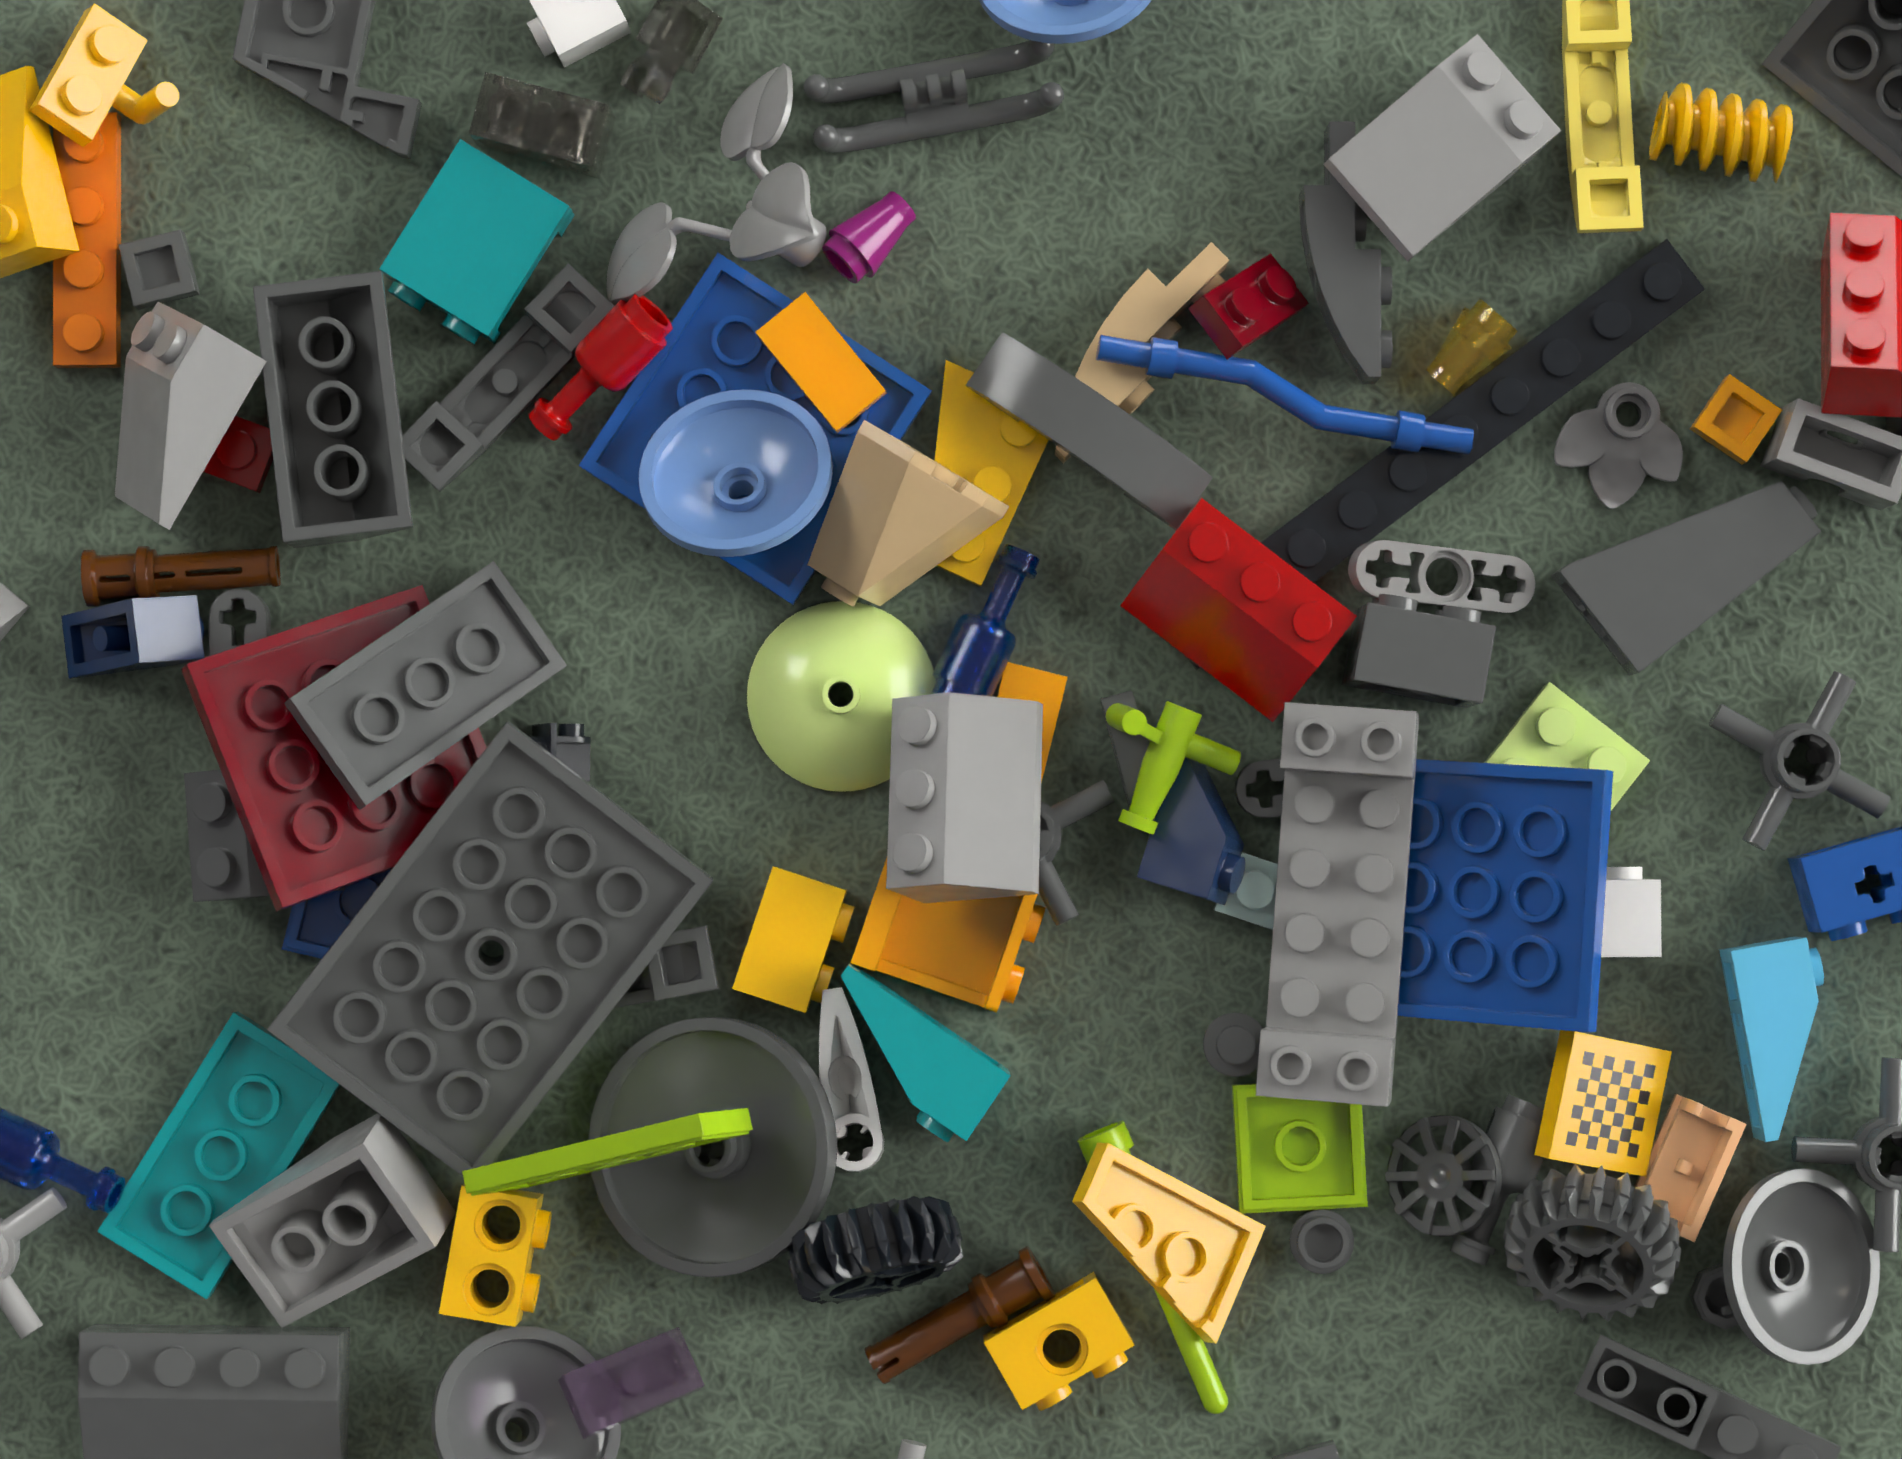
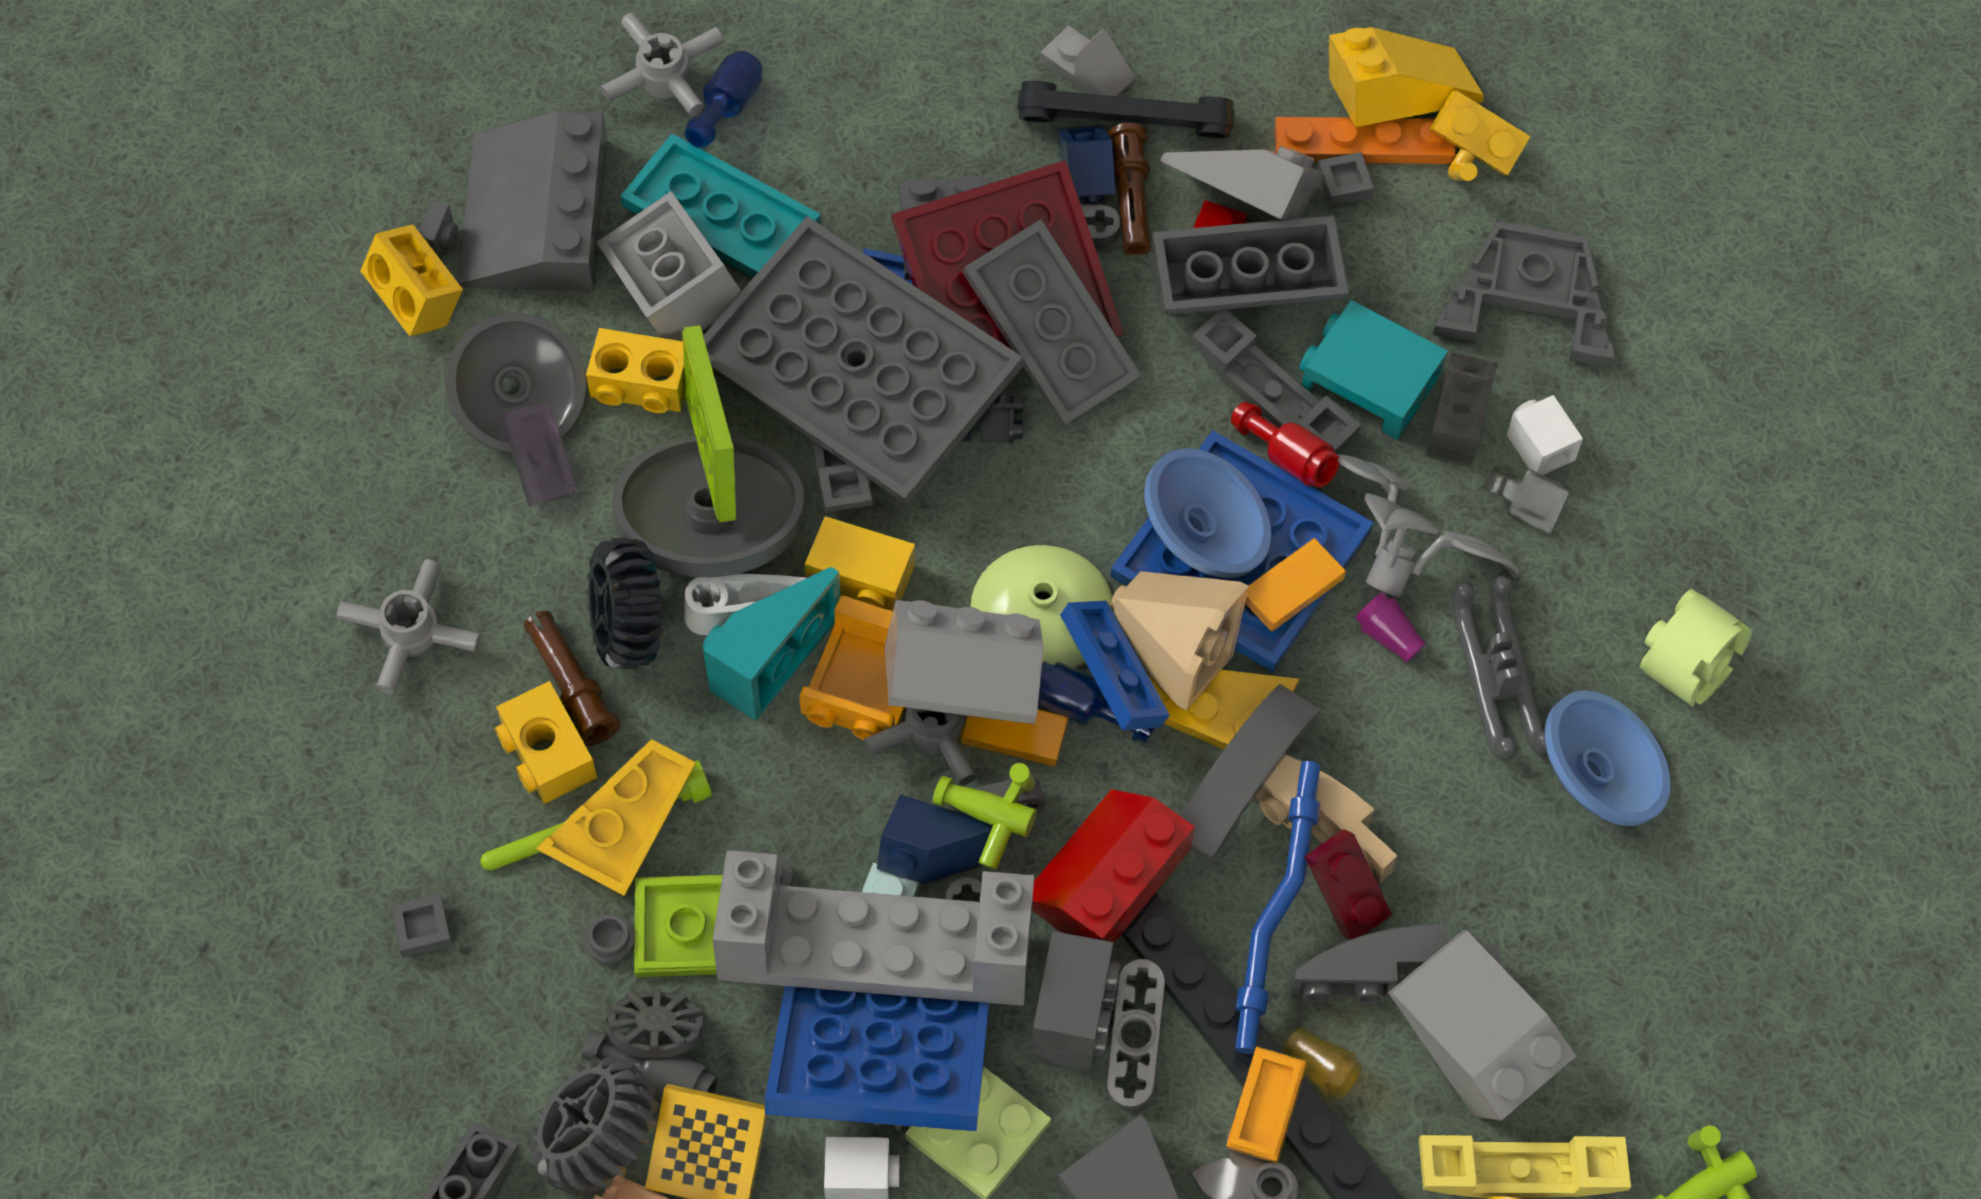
camera: 90 degrees right, 25 degrees down
(34, 700) = (1210, 116): none -> black piece
(949, 600) = (1114, 665): none -> blue plate
(1537, 416) = (1266, 1105): none -> light orange tile

